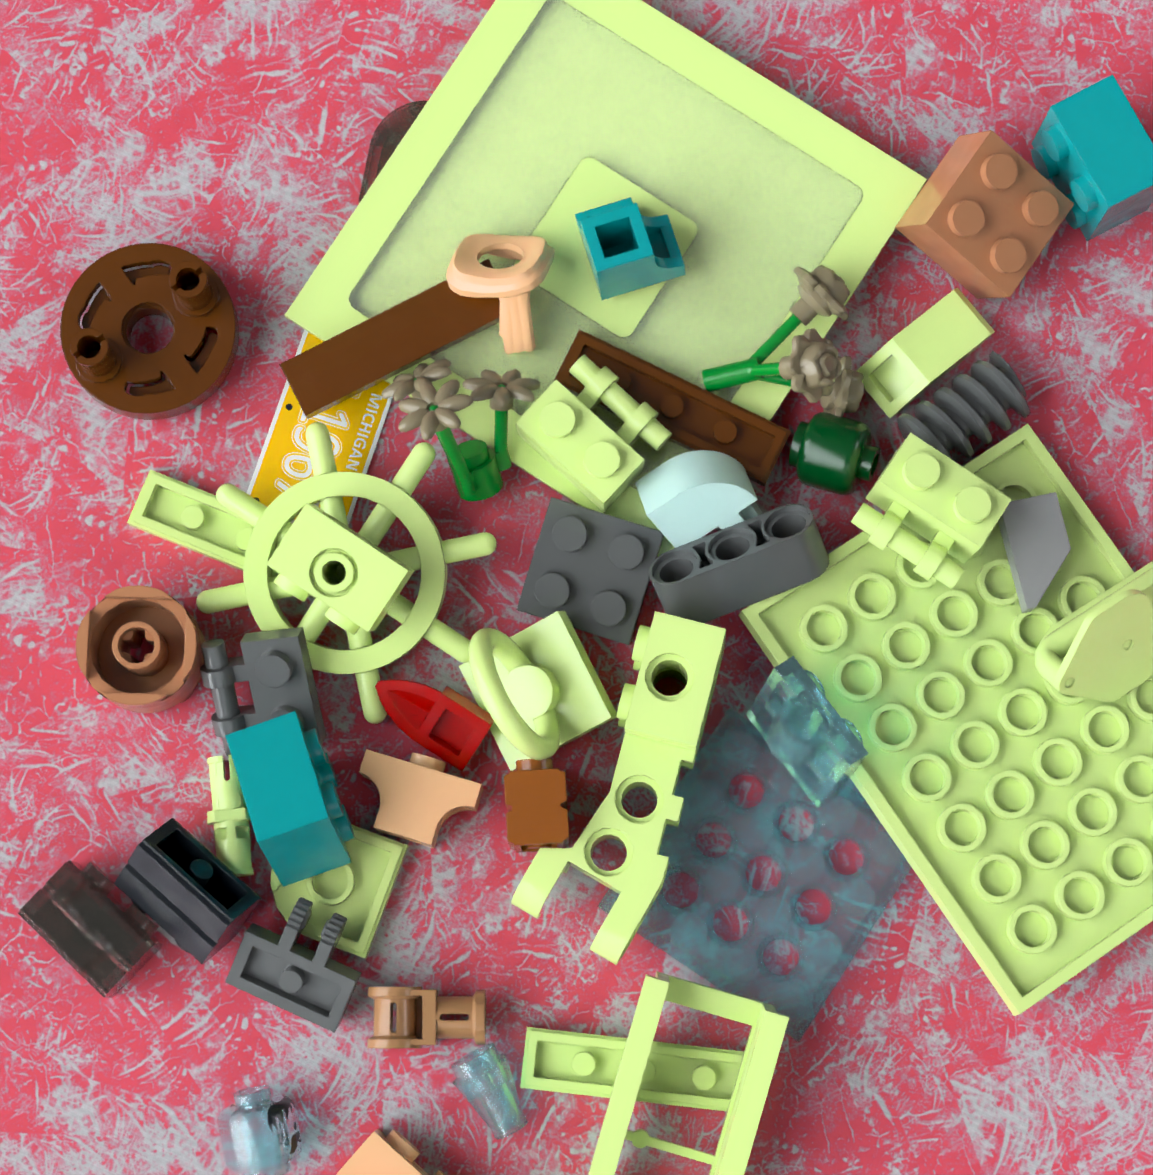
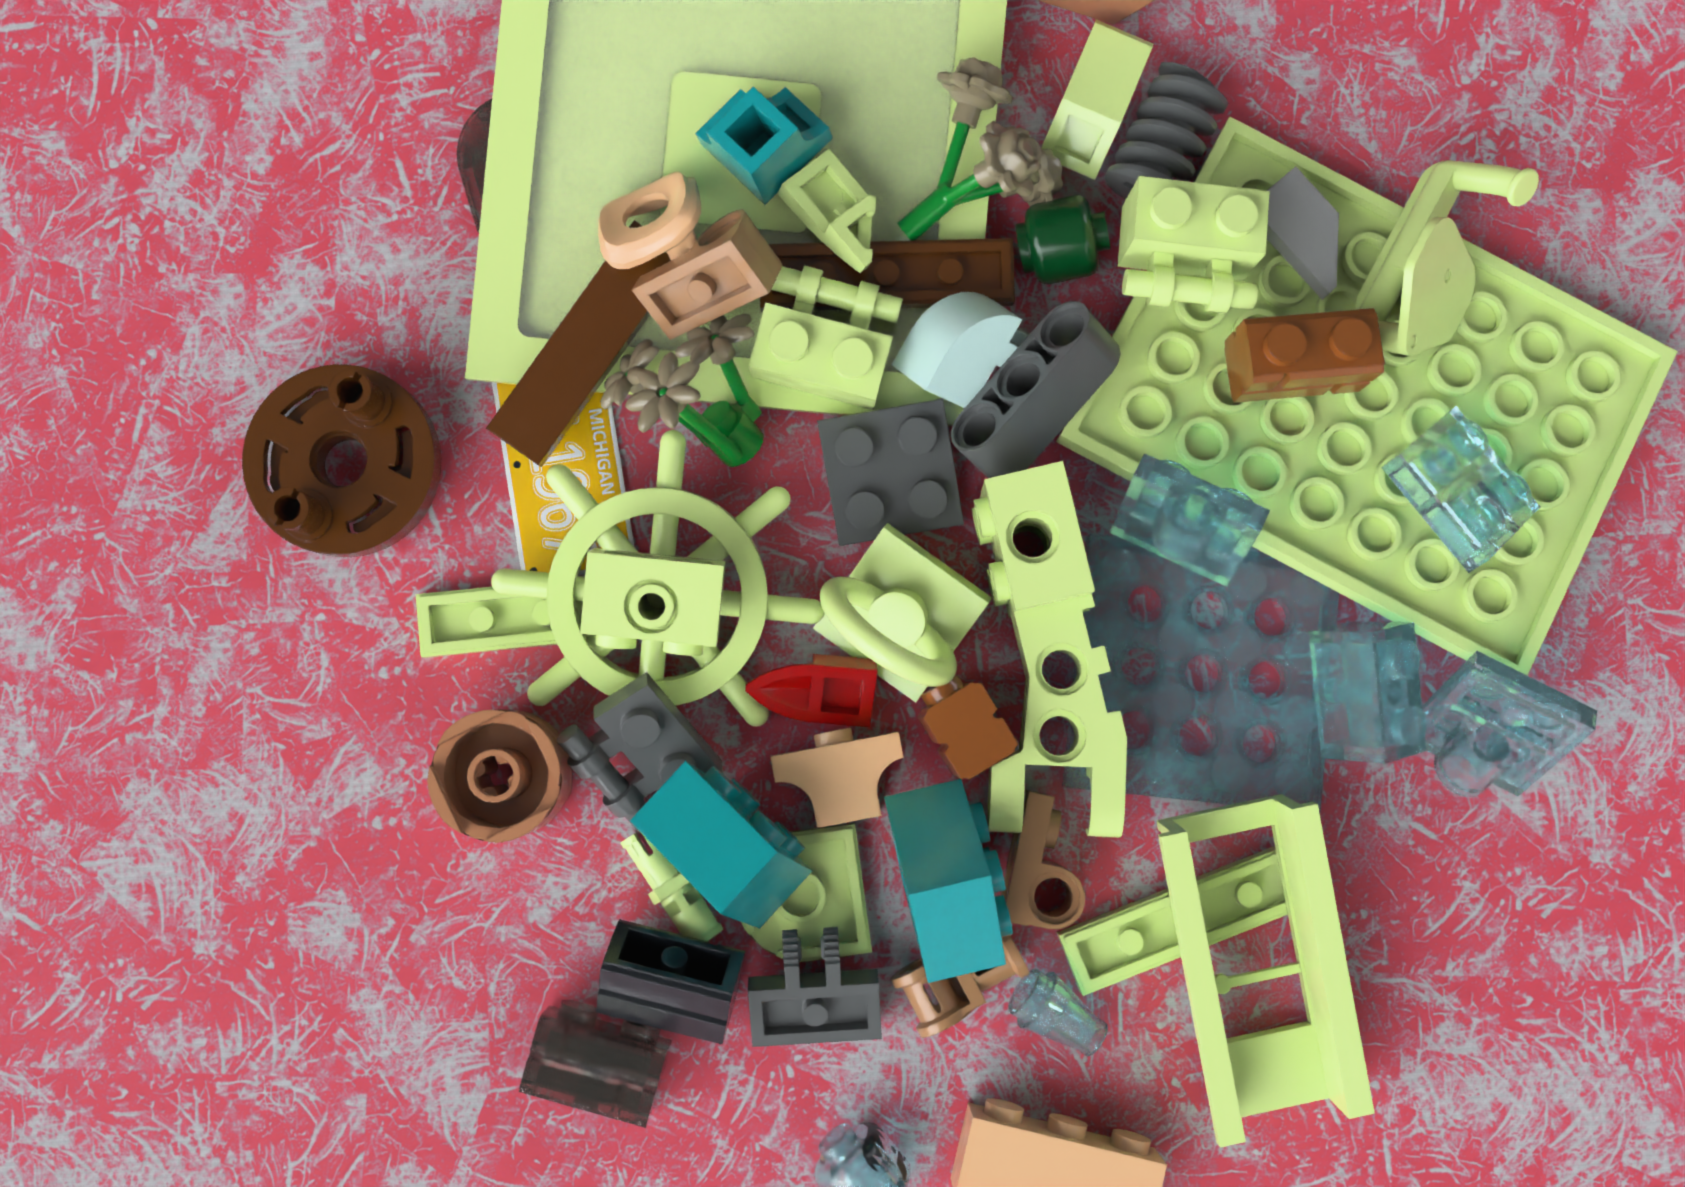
camera: 30 degrees left, 5 degrees up
(456, 922) = (950, 879): none -> teal brick
(533, 337) = (719, 274): none -> medium nougat plate
(553, 927) = (1027, 869): none -> medium nougat plate
(655, 331) = (833, 208): none -> yellowish green slope
(887, 955) = (1368, 691): none -> clear light blue brick
(973, 648) = (1304, 355): none -> dark orange brick
(979, 1043) = (1500, 728): none -> clear light blue plate
(1045, 823) = (1462, 488): none -> clear light blue plate

